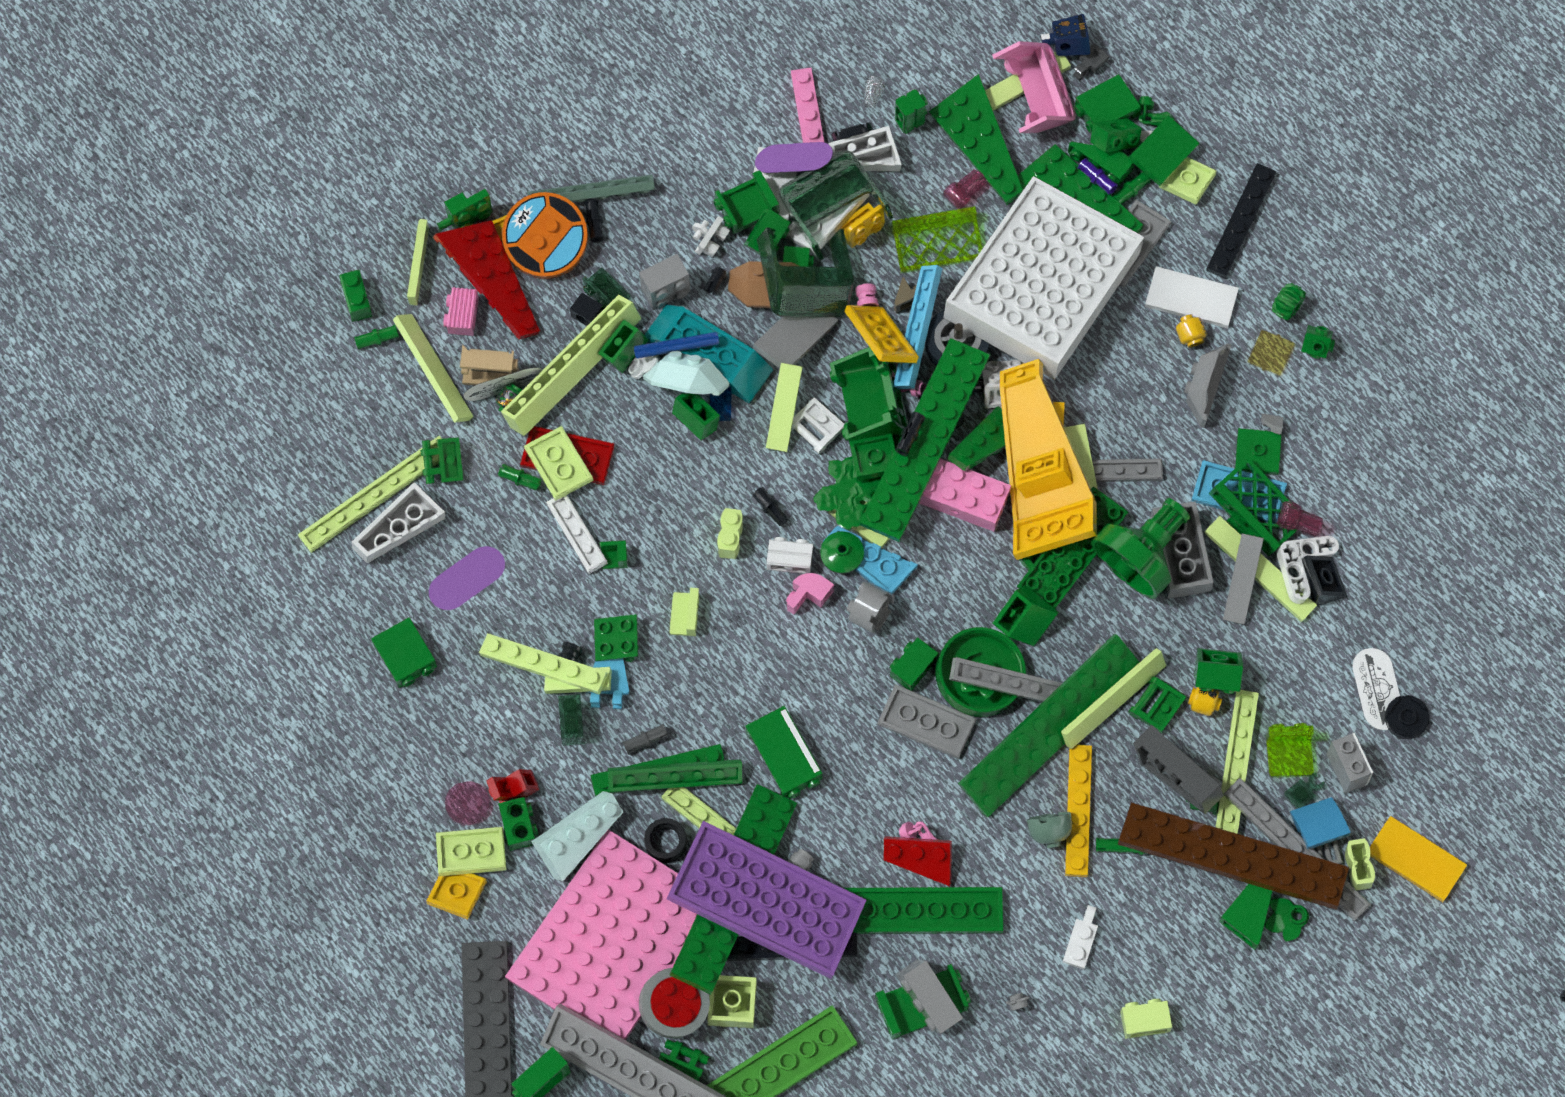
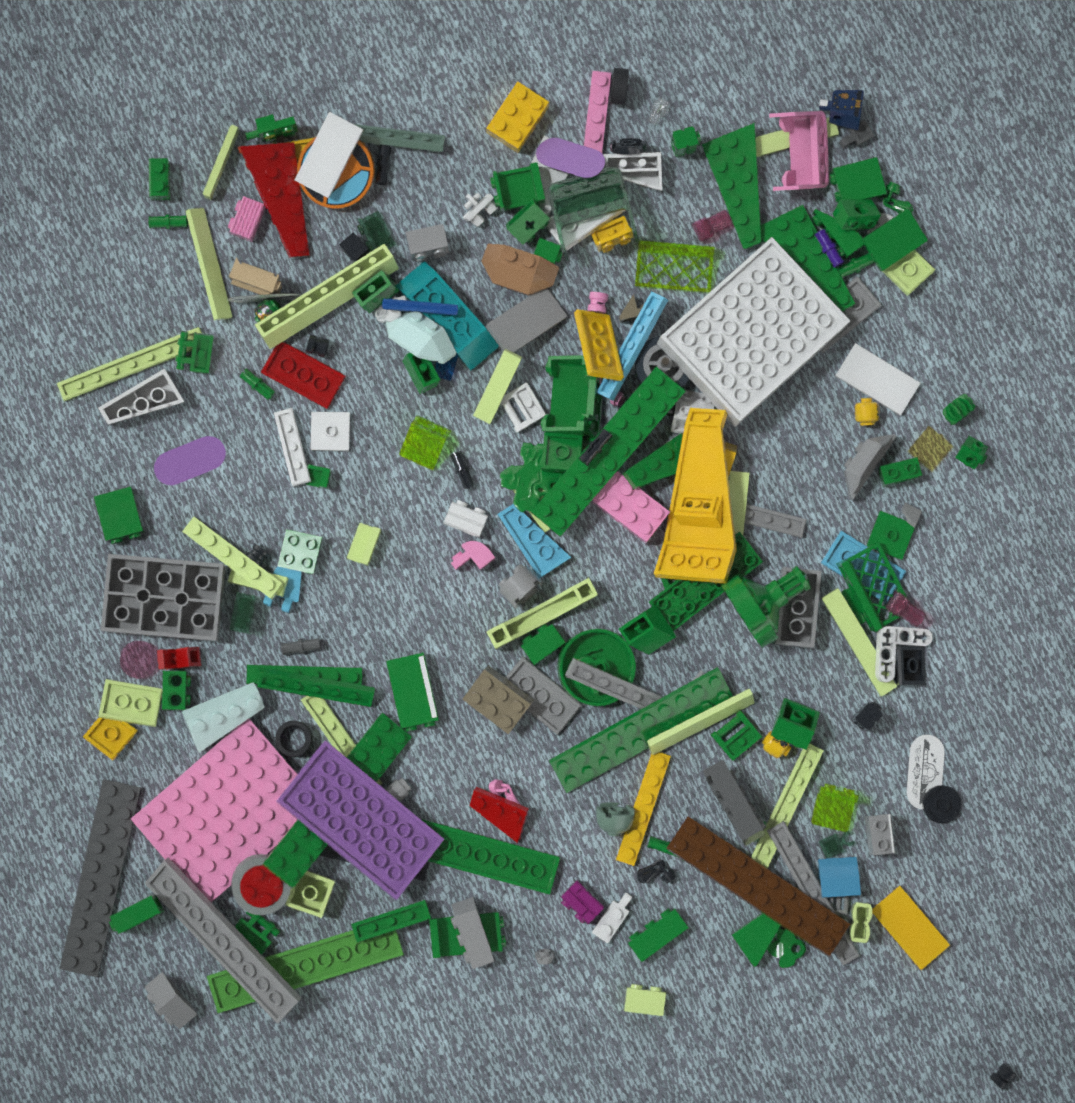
camera: 10 degrees right, 15 degrees up
(477, 726) = (163, 597): none -> light grey brick
(534, 217) = (329, 155): none -> white tile
(558, 463) = (292, 381): yellowish green tile -> none
(580, 420) = (322, 346): none -> black wheel
(613, 505) = (330, 431): none -> white plate
(715, 280) = (472, 250): black pin -> none
(719, 488) = (424, 442): none -> clear neon green bracket
(724, 135) = (517, 117): none -> yellow brick
(731, 530) = (423, 481): yellowish green brick -> none
(807, 290) = (549, 286): clear green windscreen -> none
(824, 75) = (619, 86): none -> black tyre
(832, 1006) = (391, 921): none -> green fence
(845, 561) = (506, 538): green dish -> none
(882, 734) = (498, 699): none -> dark tan brick
(920, 617) = (542, 613): none -> yellowish green arch
(1042, 930) = (581, 902): none -> magenta brick
(1105, 880) = (646, 874): none -> black piece
(1137, 941) = (657, 934): none -> green brick
(1241, 221) = (942, 320): black plate -> none
(1243, 578) = (841, 648): light grey tile -> none
(1246, 382) = (899, 472): none -> green brick
(1294, 641) = (867, 715): none -> black brick

